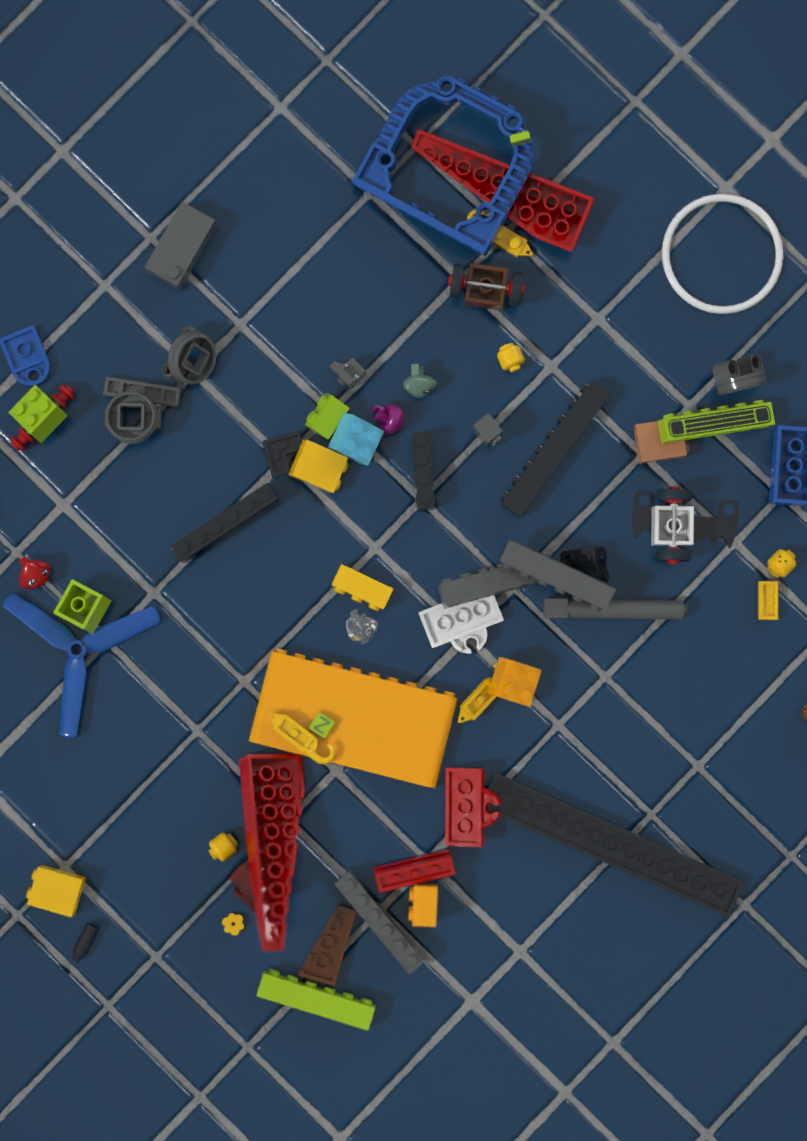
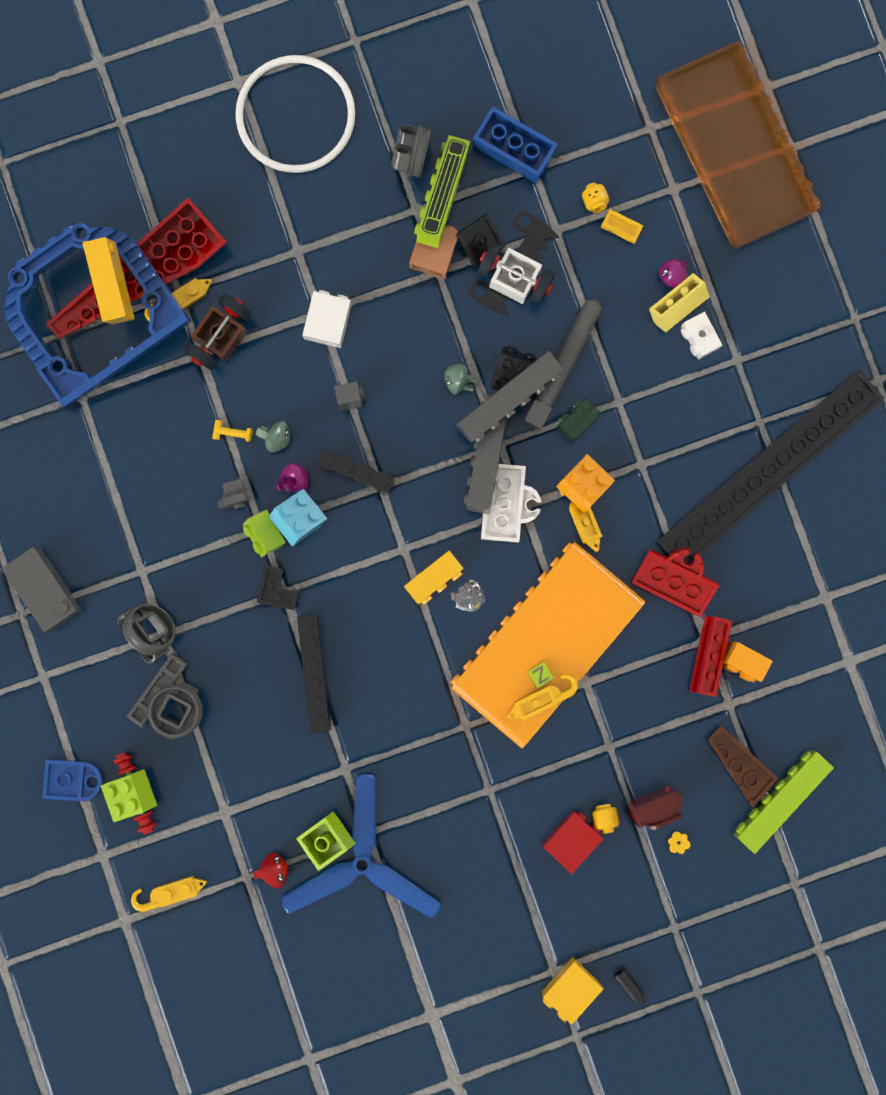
camera: 70 degrees left, 0 degrees up
(188, 827) = (572, 841): none -> red brick
(272, 811) = (596, 758): red wedge -> none
(319, 466) = (305, 563): yellow brick -> none
(379, 921) = (740, 709): dark grey brick -> none
(400, 329) = (218, 430): none -> yellow piece
(481, 168) = (108, 280): none -> yellow brick
(510, 357) = (293, 344): yellow head -> none
(520, 138) = (100, 230): lime tile -> none
(548, 376) = (327, 318): none -> white brick
(552, 519) = (457, 380): none -> sand green piece
(555, 449) = (395, 344): black brick -> none
(570, 648) = (579, 420): none -> clear green brick
(690, 475) = (478, 238): none -> black plate
(702, 721) = (700, 336): none -> white brick
(722, 686) = (679, 302): none -> light yellow brick
(747, 668) = (673, 272): none -> magenta piece

